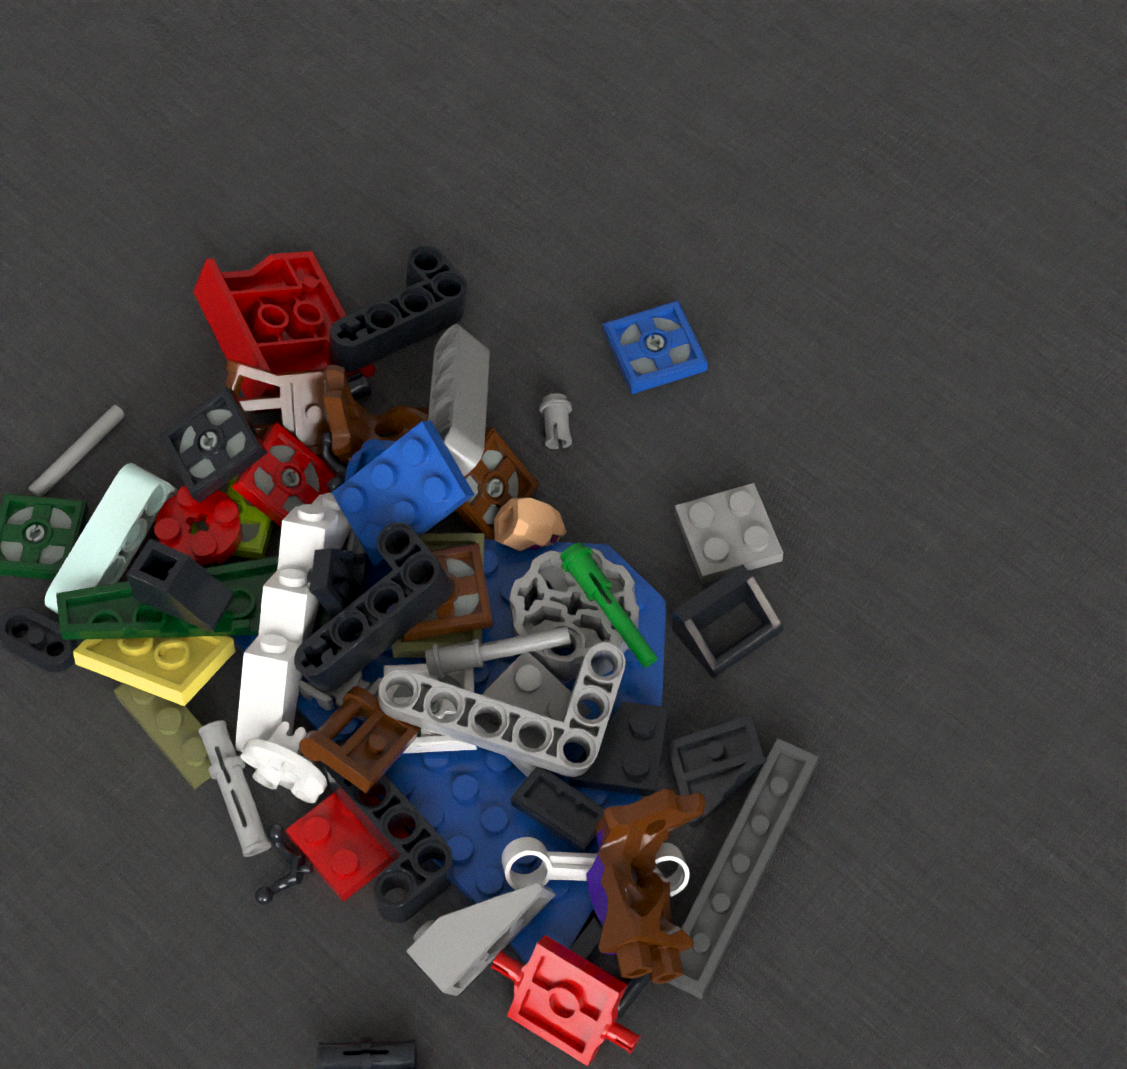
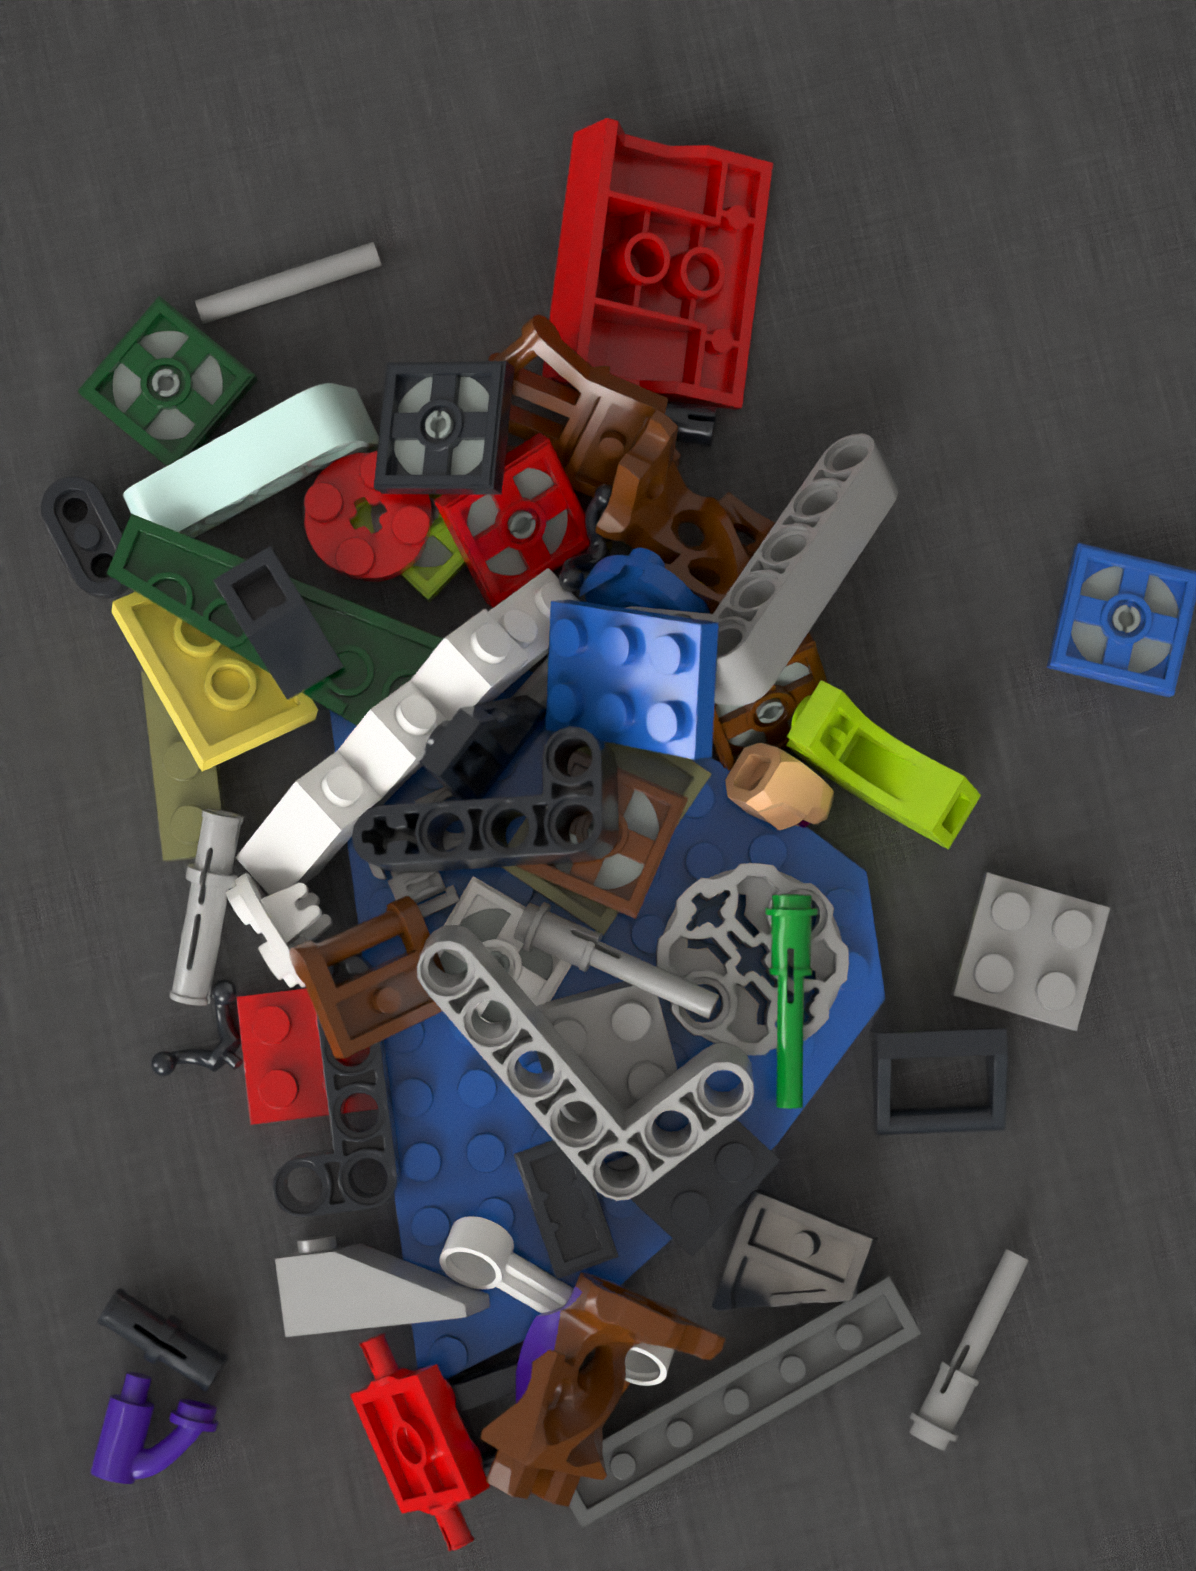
camera: 30 degrees right, 25 degrees up
(428, 304) = (809, 353): black beam -> none
(555, 412) = (923, 645): light grey pin -> none
(575, 488) = (878, 767): none -> lime arch
(864, 803) = (955, 1380): none -> light grey pin

